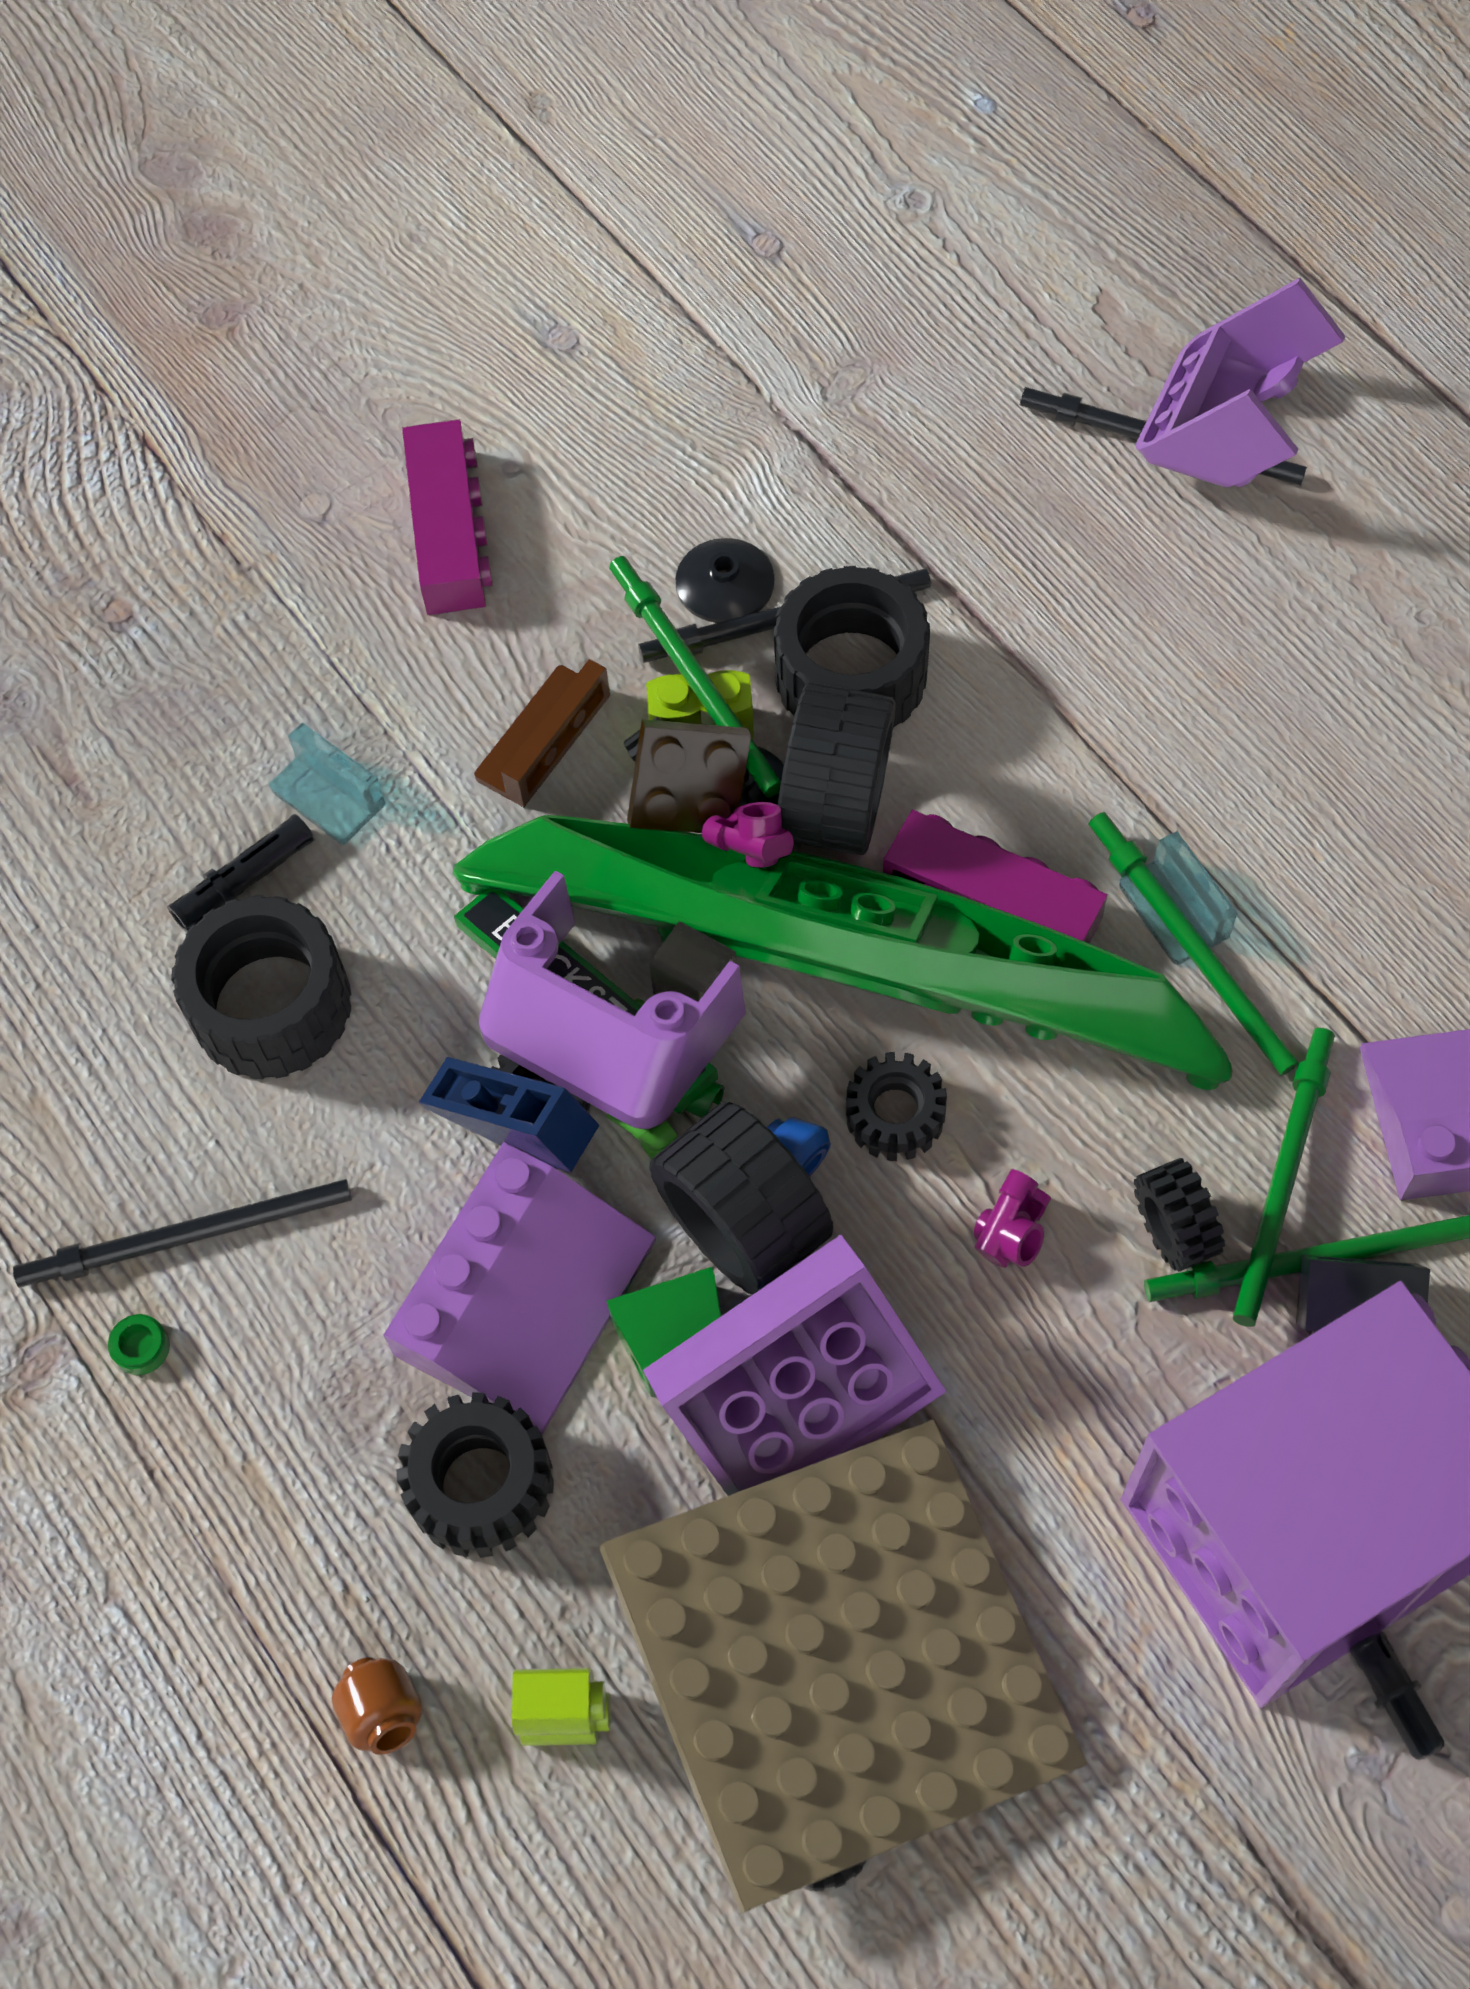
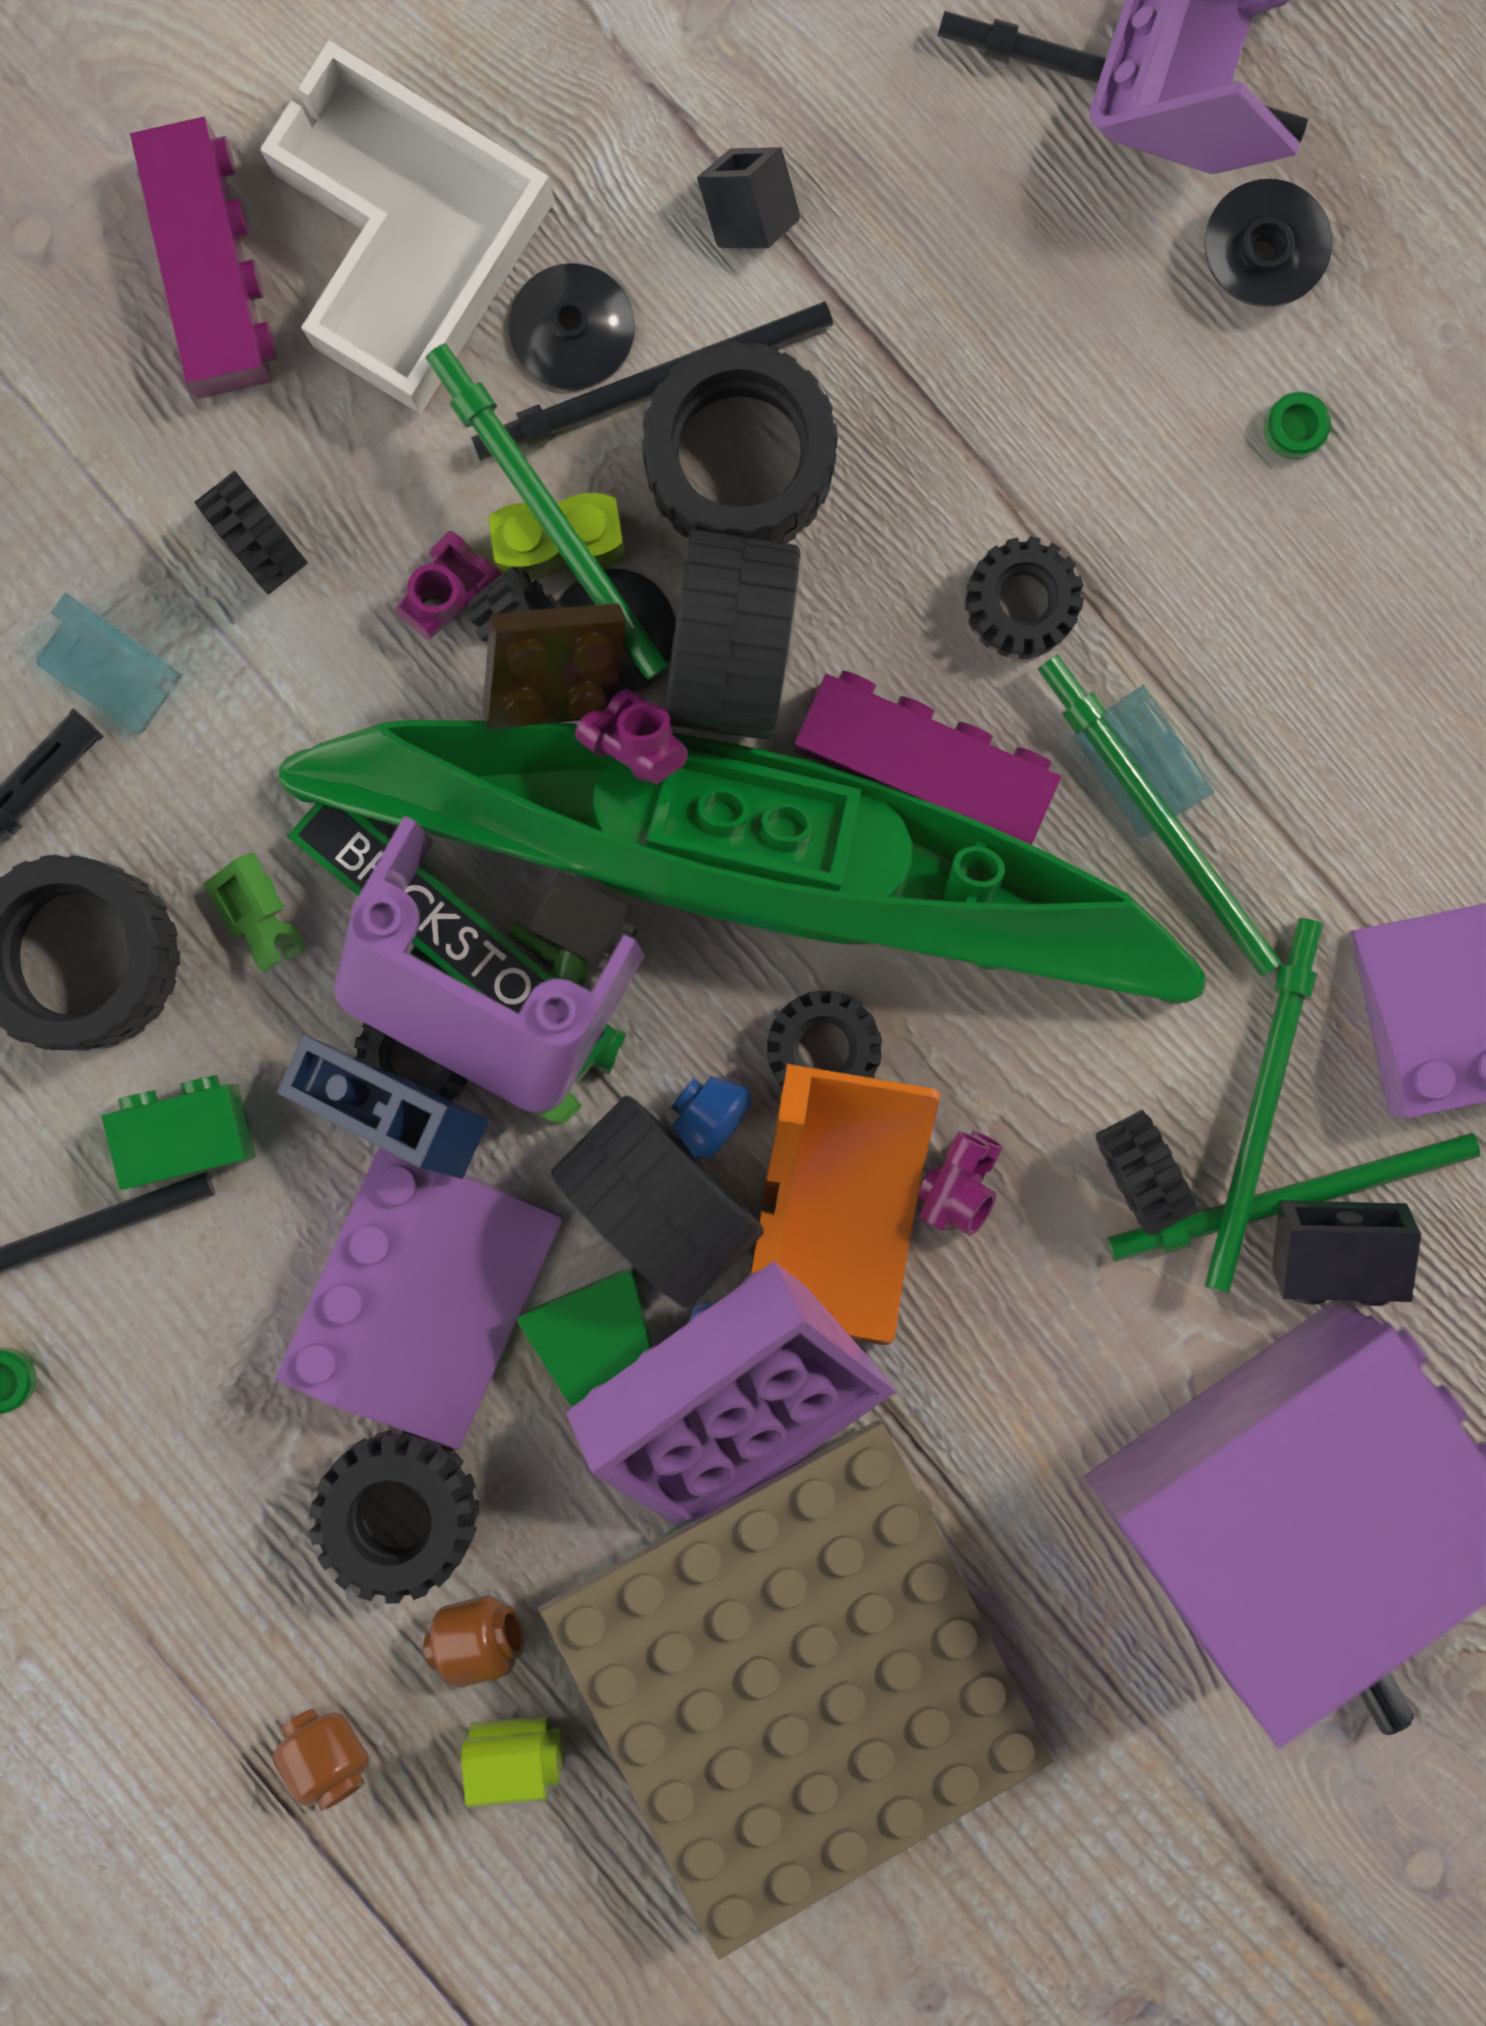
camera: 10 degrees left, 25 degrees up
(328, 1141) = (179, 1134): none -> green brick
(412, 967) = (248, 908): none -> bright green plate
(456, 690) = (251, 532): none -> black tyre
(535, 1601) = (474, 1641): none -> dark orange head
(544, 732) = (364, 567): reddish brown panel -> none
(600, 744) = (451, 576): none -> magenta plate
(616, 490) = (435, 215): none -> white piece
(869, 496) = (749, 197): none -> black panel
(913, 1208) = (846, 1192): none -> orange panel
(1081, 750) = (1044, 565): none -> black tyre
(1277, 526) = (1286, 220): none -> black dish
(1303, 670) = (1297, 425): none -> green tile

